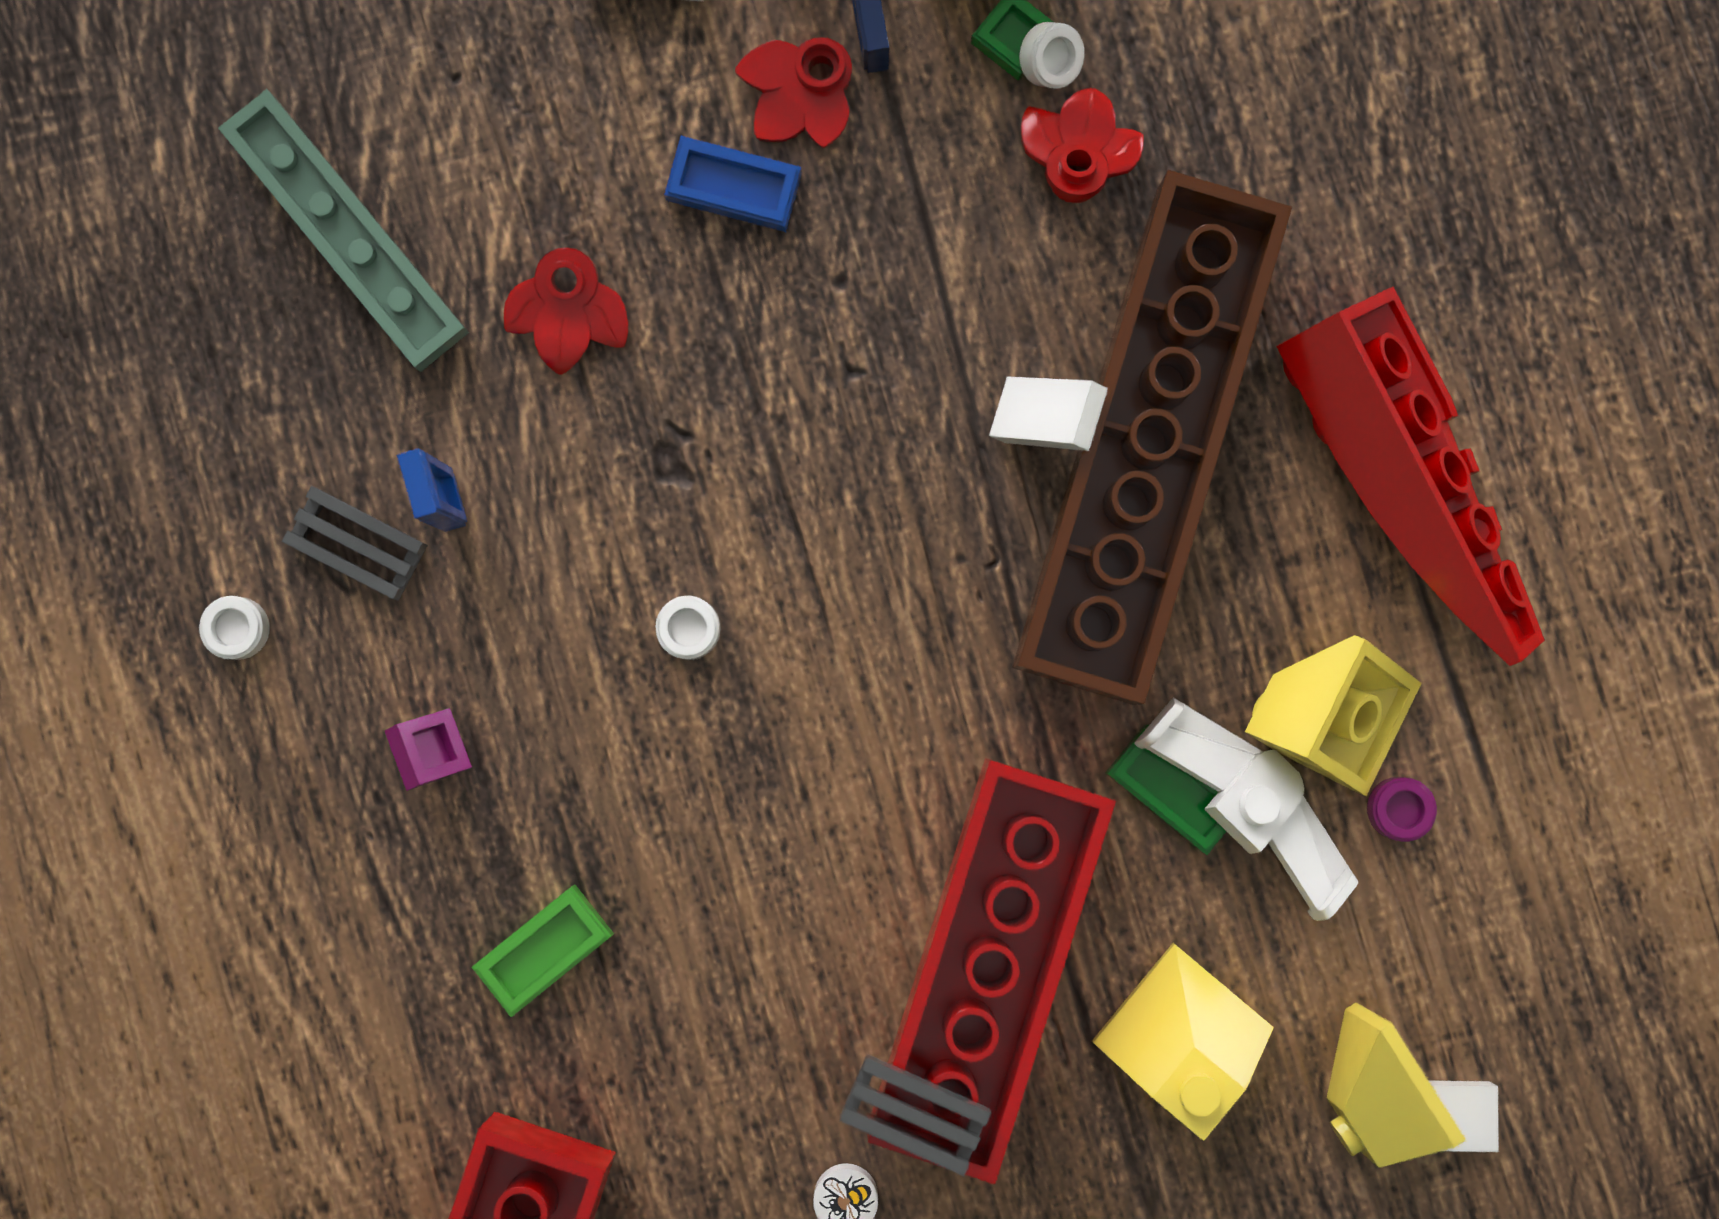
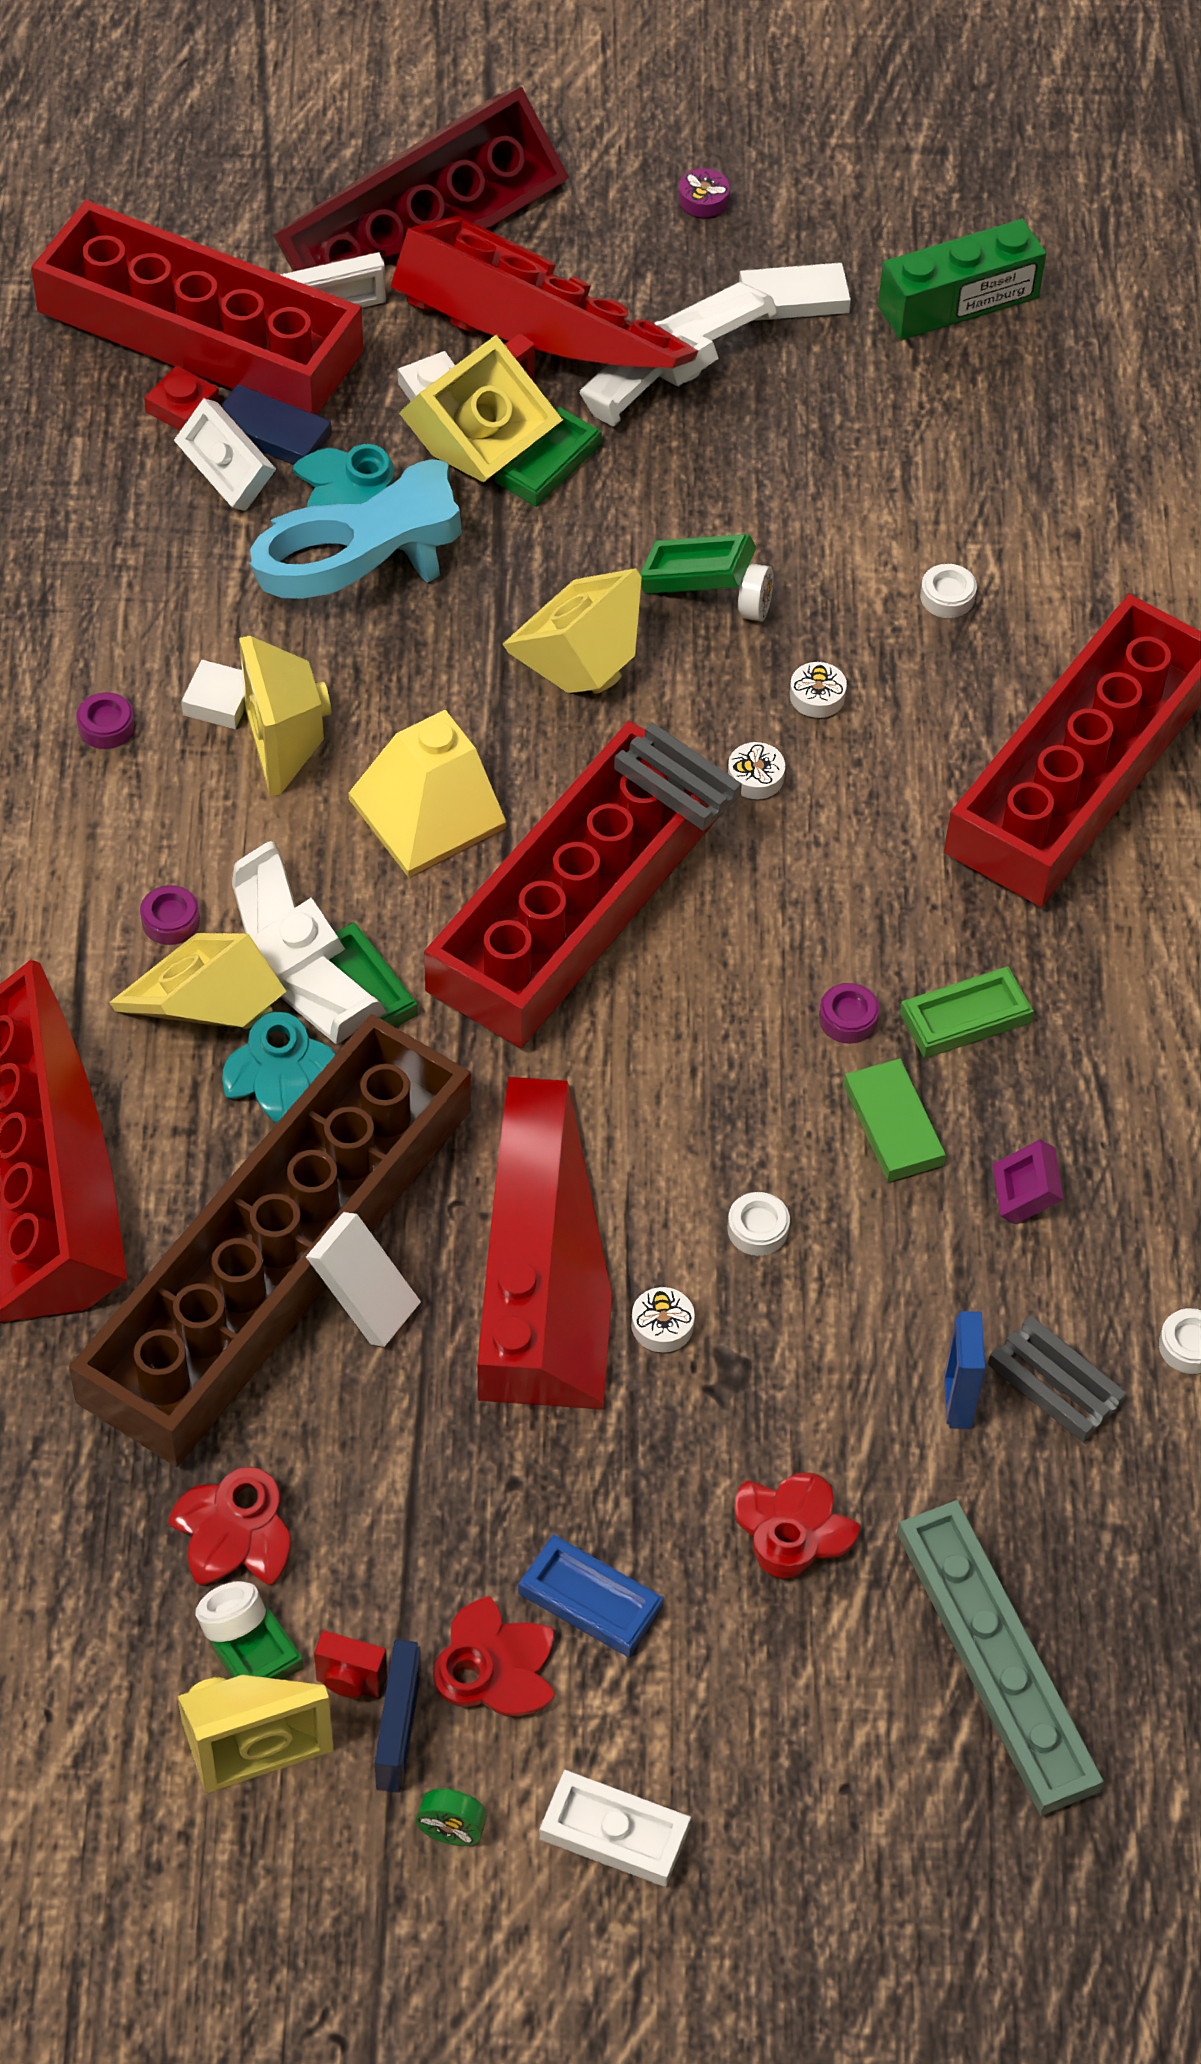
camera: 170 degrees left, 30 degrees down
(584, 791) = (894, 1120): none -> bright green tile
(663, 910) = (848, 1013): none -> magenta tile
(750, 488) = (662, 1319): none -> white tile
(885, 522) = (545, 1261): none -> red wedge
(925, 33) = (350, 1666): none -> red plate
(1216, 643) = (275, 1073): none -> teal plate
(1569, 1041) = (105, 720): none -> magenta tile

